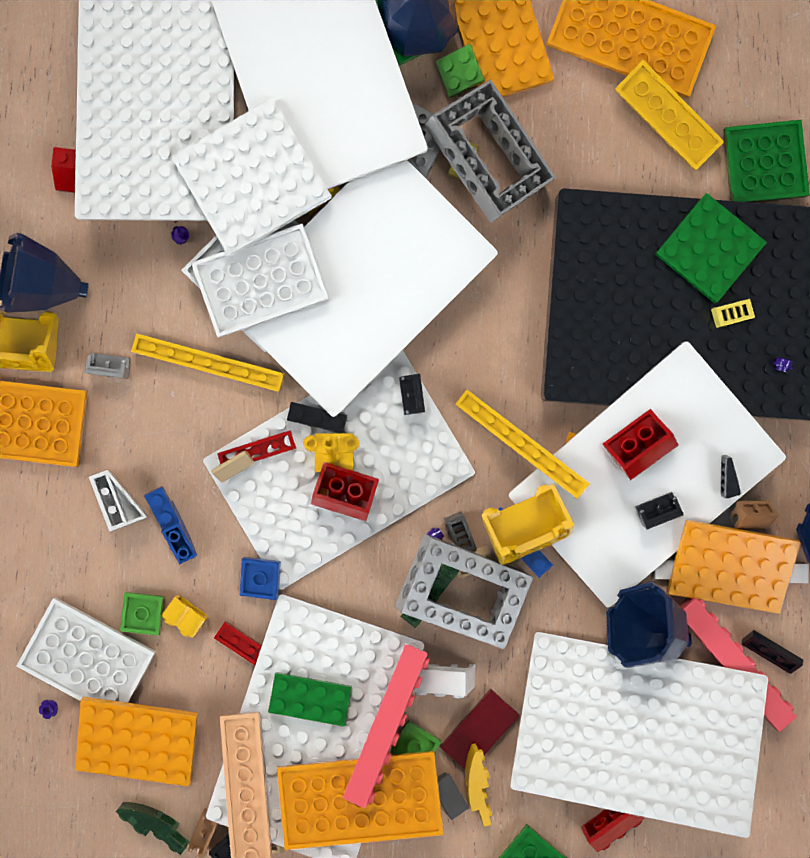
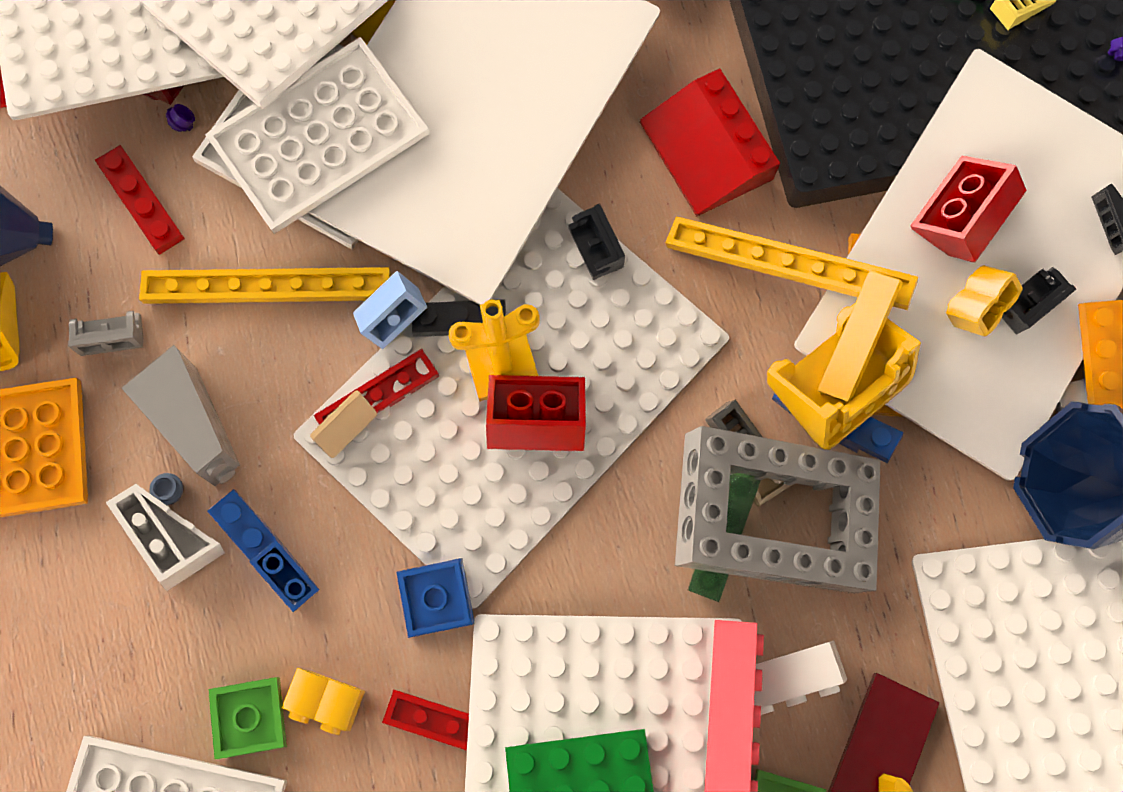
camera: 20 degrees left, 15 degrees down
(124, 471) = (166, 488): none -> sand blue plate
(143, 436) = (181, 409): none -> light grey slope
(144, 282) = (139, 199): none -> red plate
(276, 404) = (389, 310): none -> light blue brick
(503, 345) = (710, 143): none -> red slope
(543, 507) = (860, 336): none -> yellow tile
(626, 504) = (984, 300): none -> yellow brick

